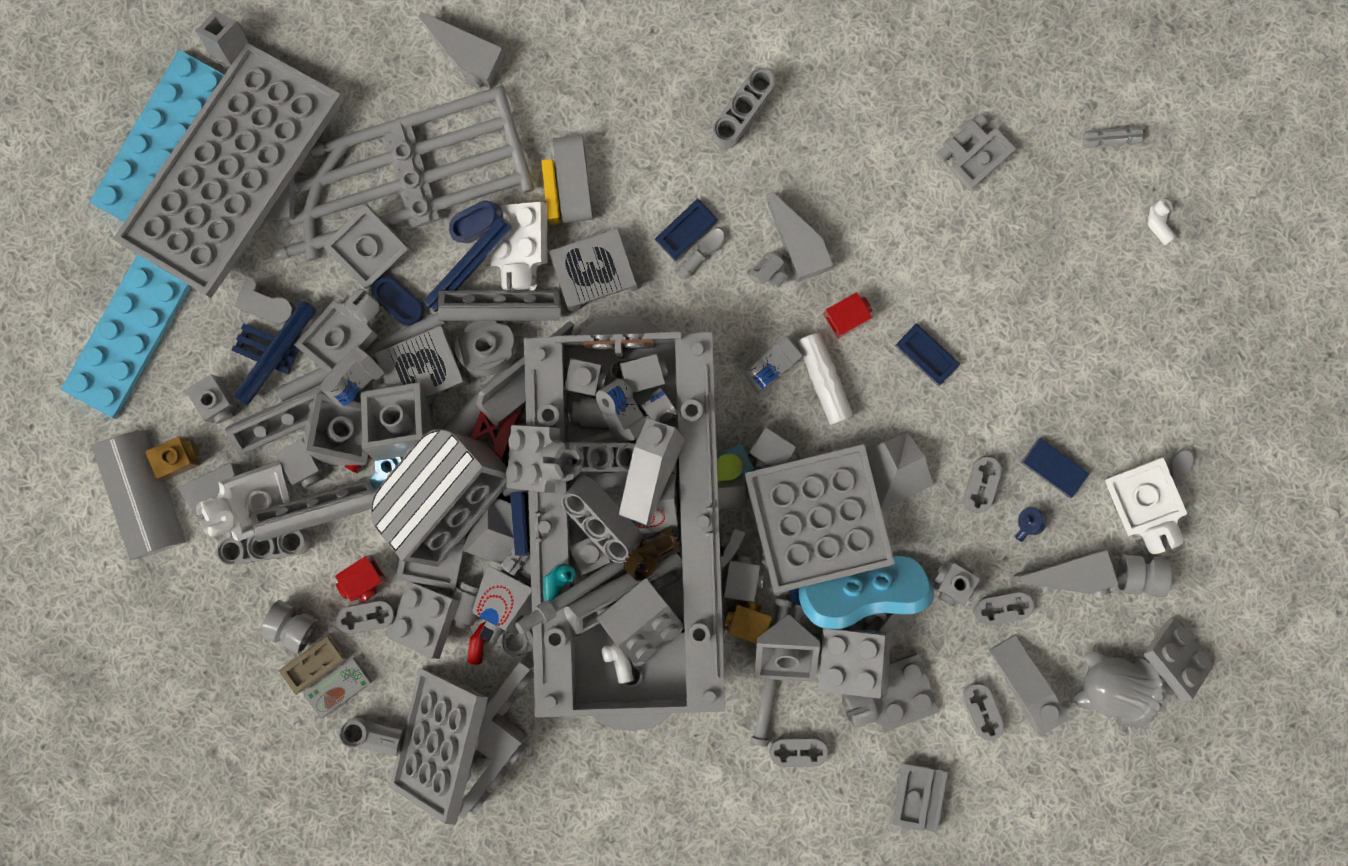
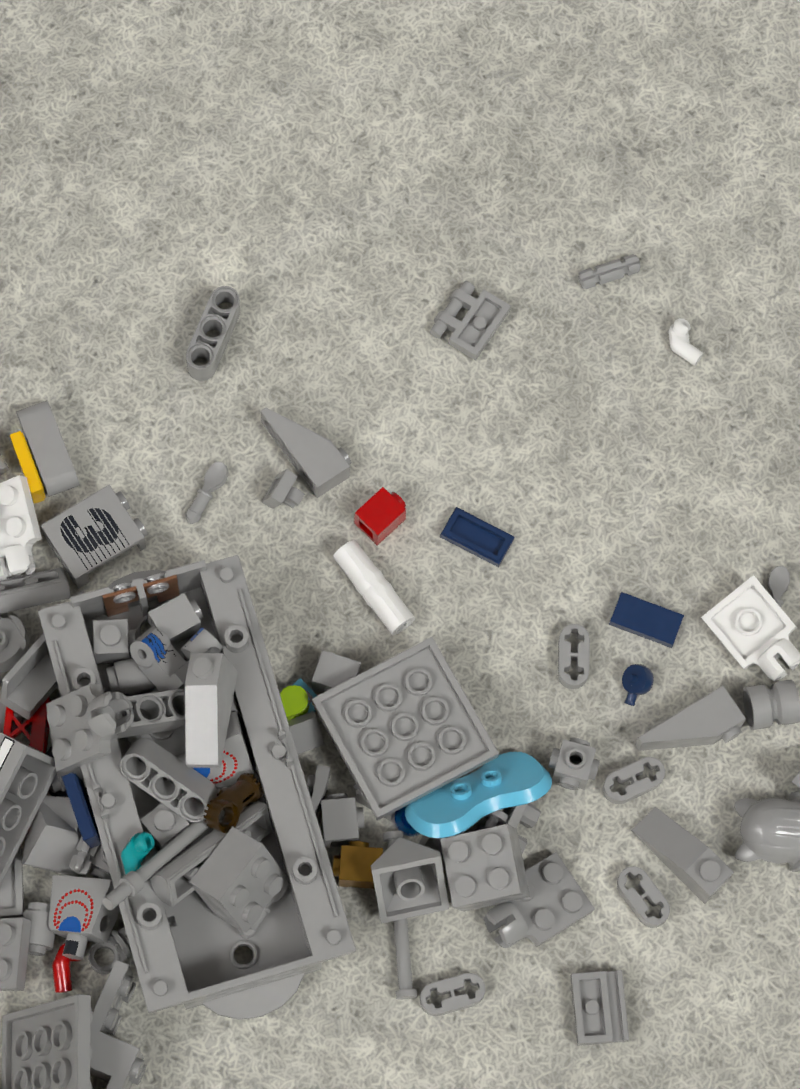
camera: 25 degrees left, 15 degrees down
(621, 662) = (220, 927): white arm -> none
(686, 229) = (183, 472): dark blue tile -> none
(773, 364) = (314, 585): light grey leg -> none
(898, 469) = (479, 662): light grey slope -> none

